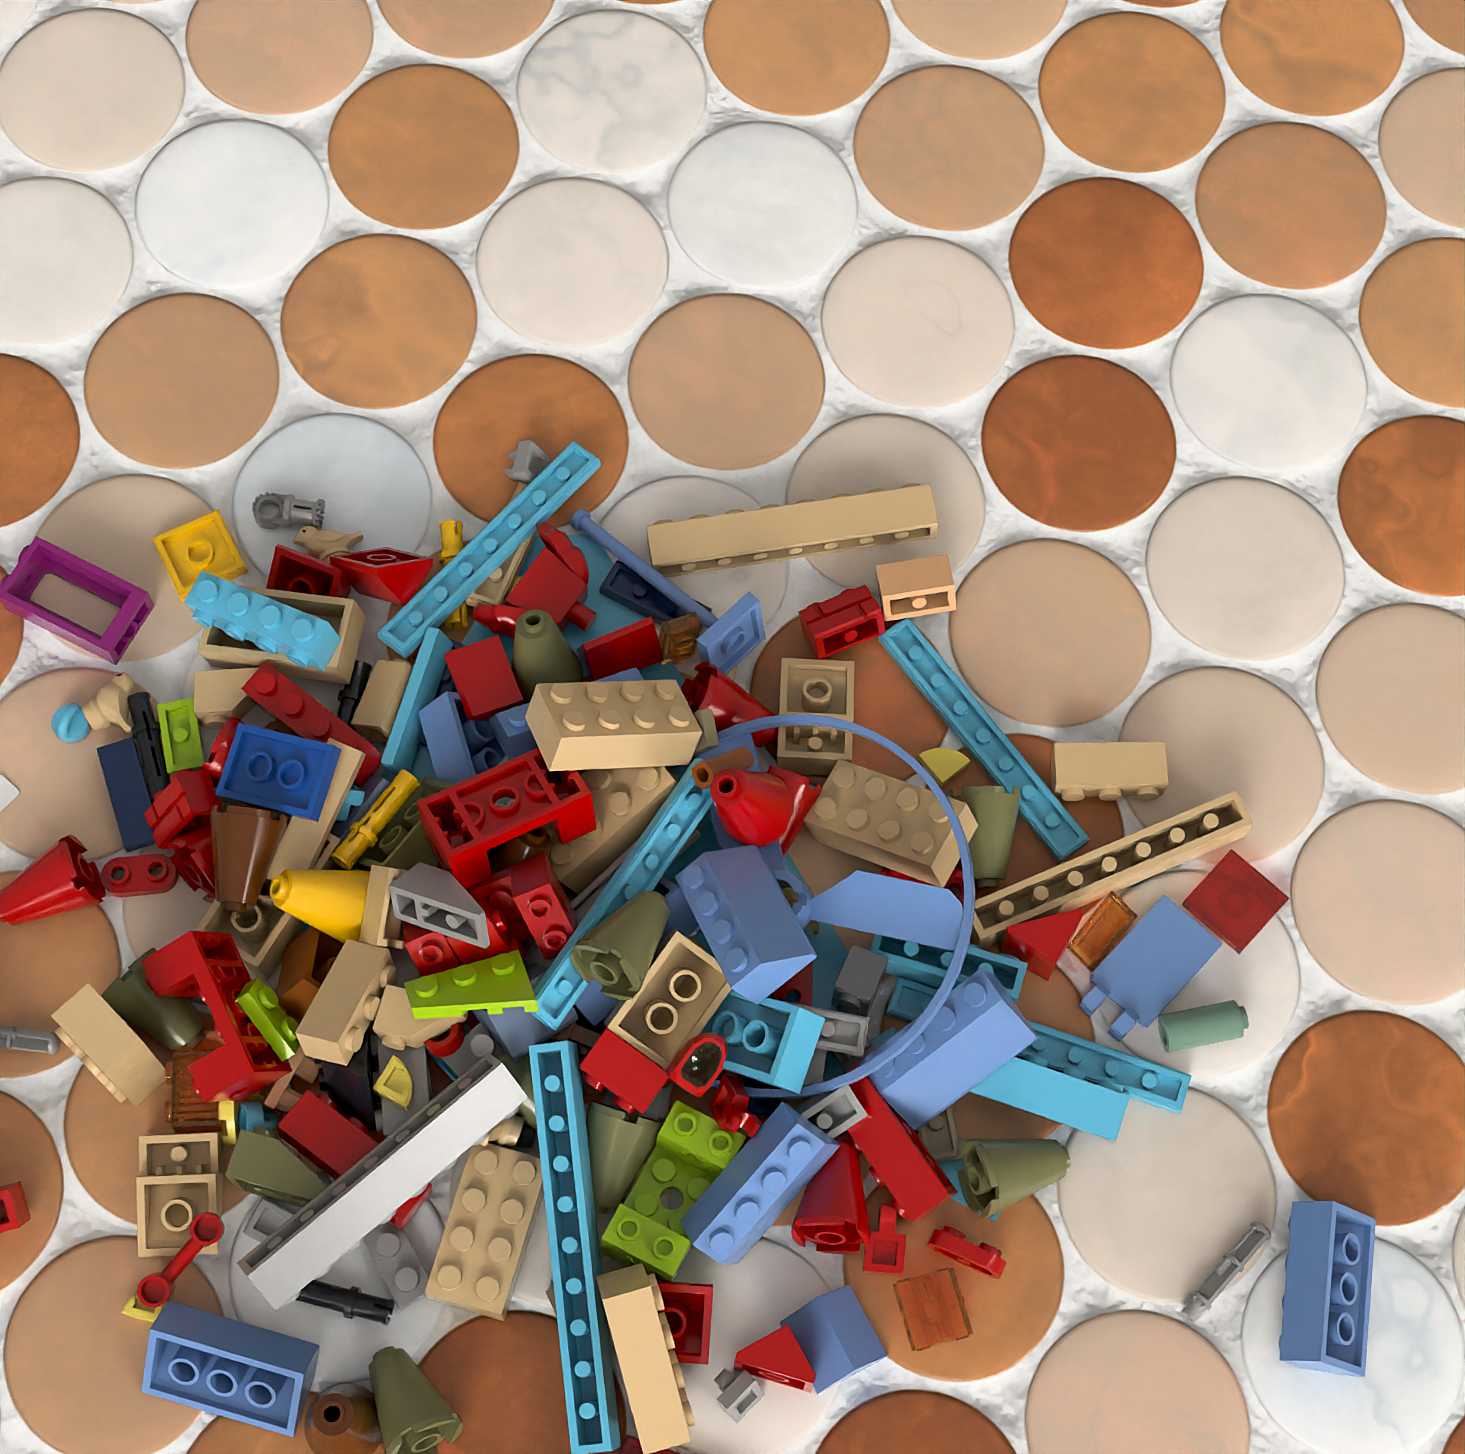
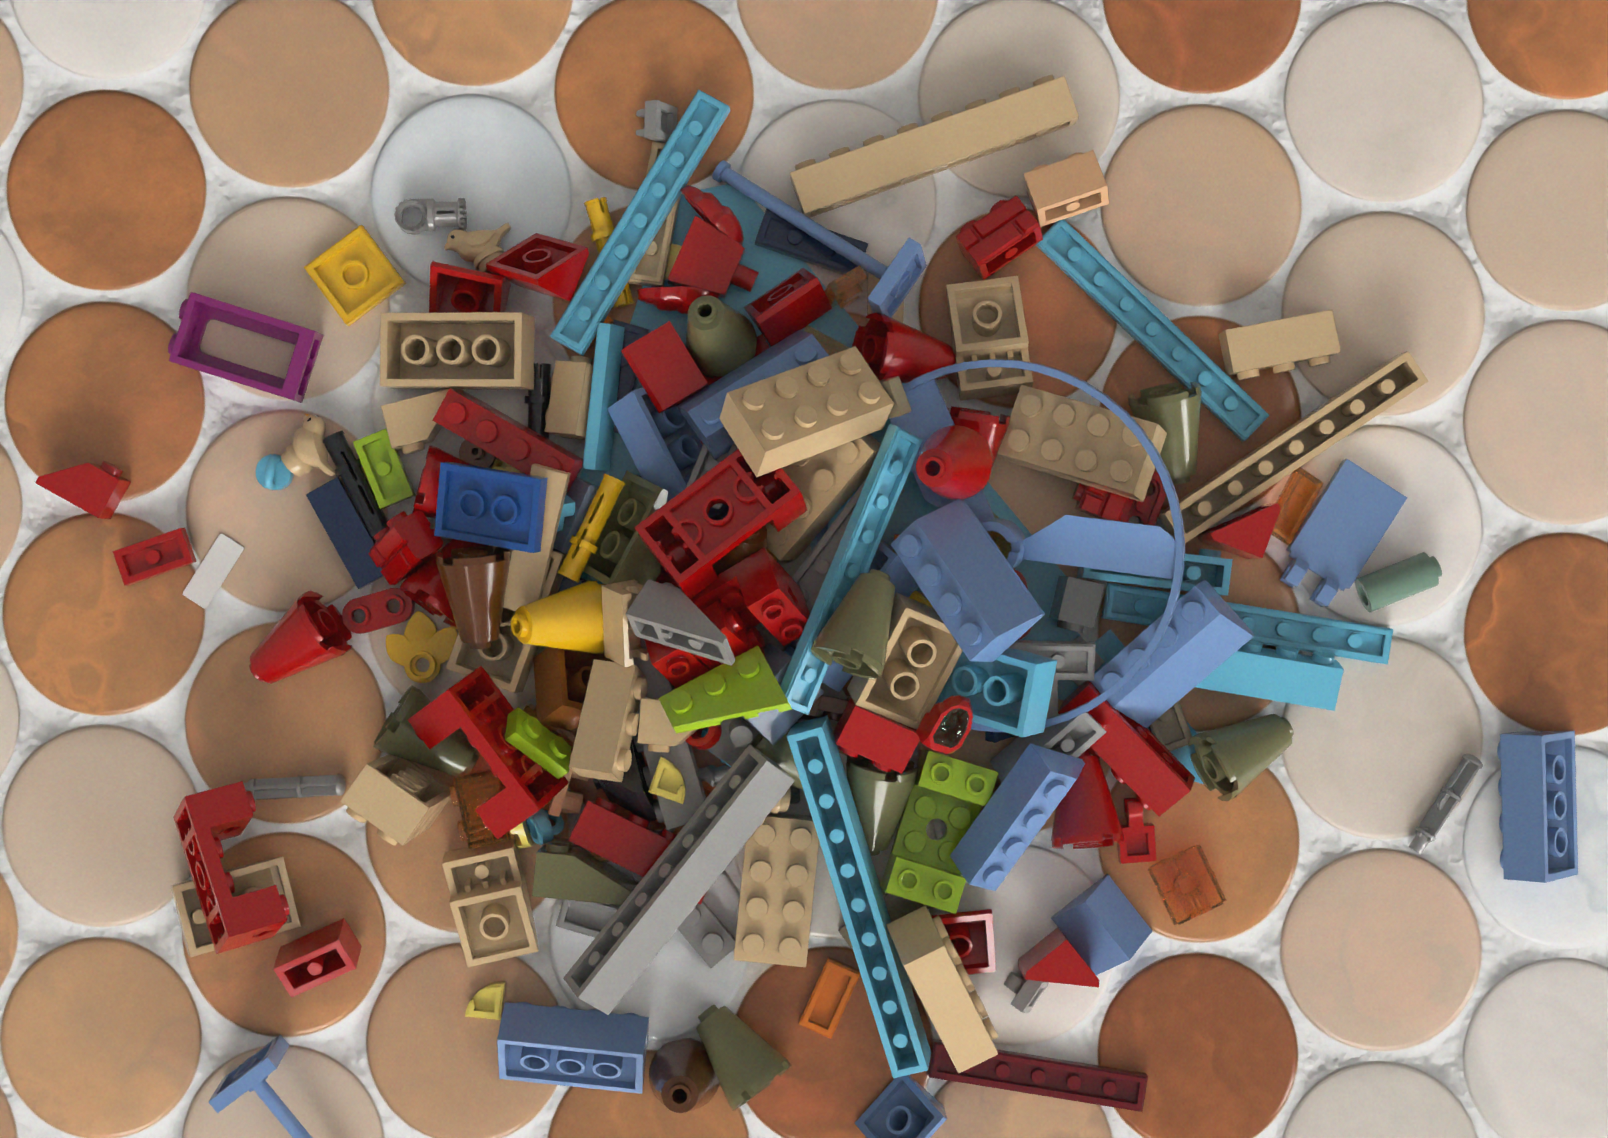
camera: 15 degrees left, 20 degrees up
(159, 1286) = (493, 990): red bar -> none
(173, 914) = (419, 642): none -> yellow plate
(262, 621) = (438, 353): medium azure brick -> none
(348, 1301) = (670, 972): black pin -> none
(521, 1366) = (829, 997): none -> orange tile
(705, 771) = (919, 432): dark orange bar -> none
(731, 1105) = (981, 755): red plate -> none
(943, 763) = (1119, 363): light yellow tile -> none
(952, 1245) = (1225, 833): red plate -> none
(1235, 901) = (1414, 451): clear red tile -> none

